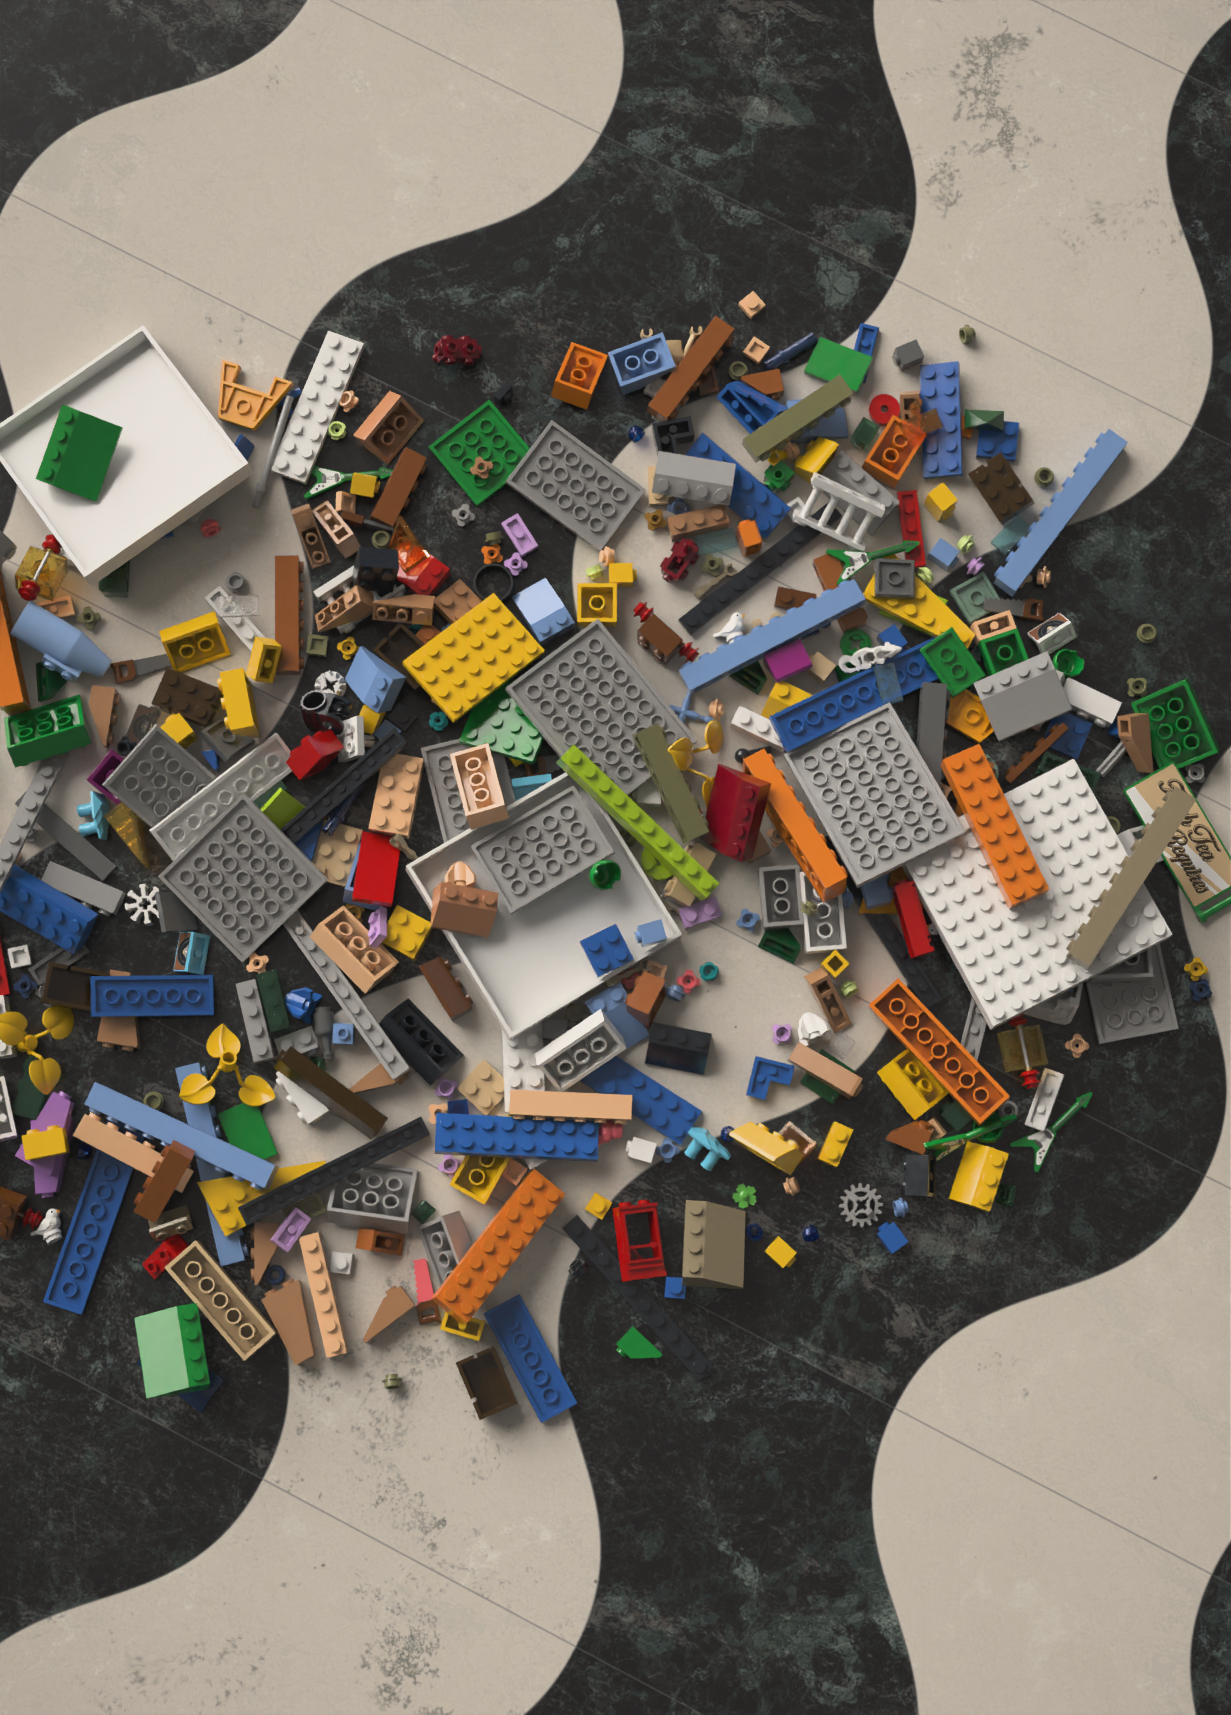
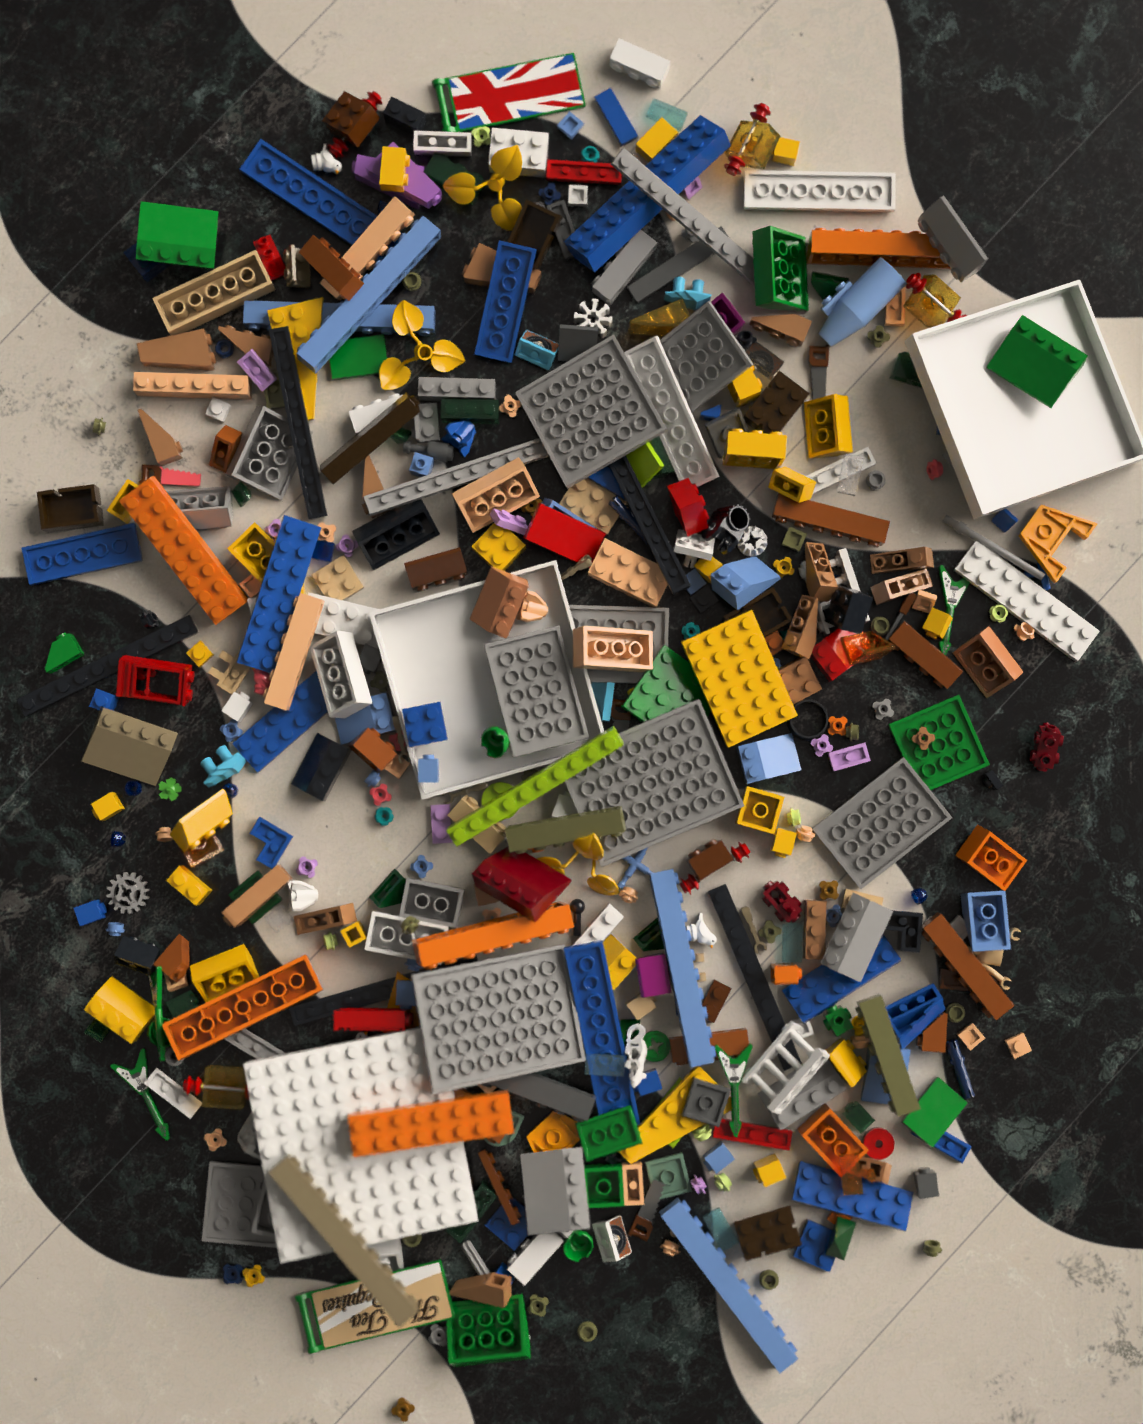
camera: 105 degrees right, 5 degrees up
(609, 1163) = (234, 674): none -> tan plate

